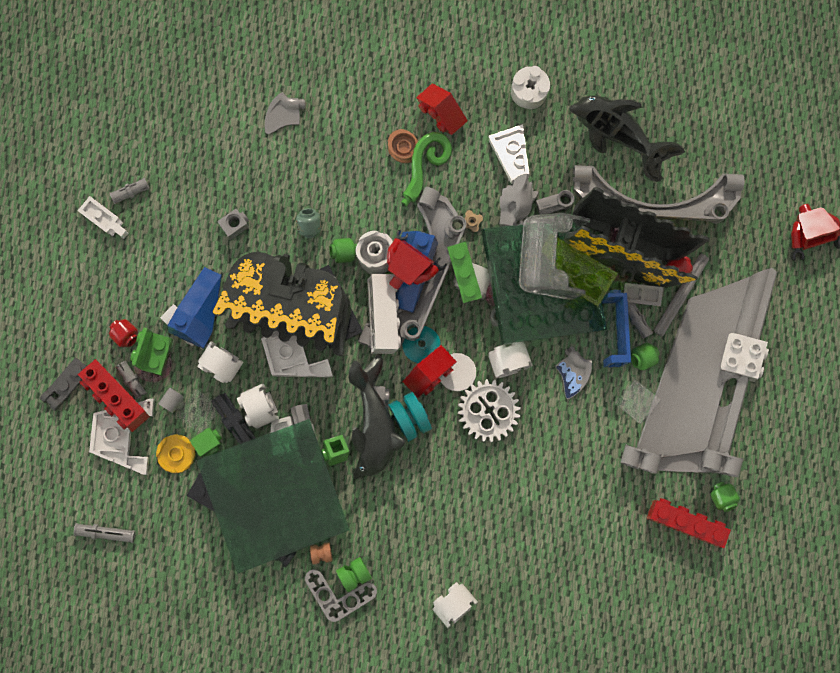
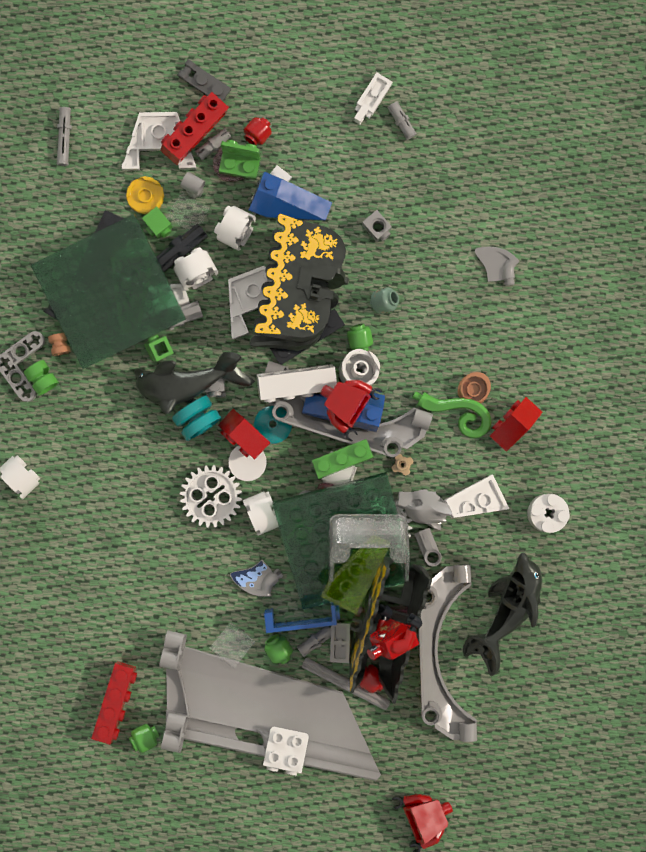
camera: 90 degrees right, 5 degrees up
(648, 230) = (393, 637): none -> red torso

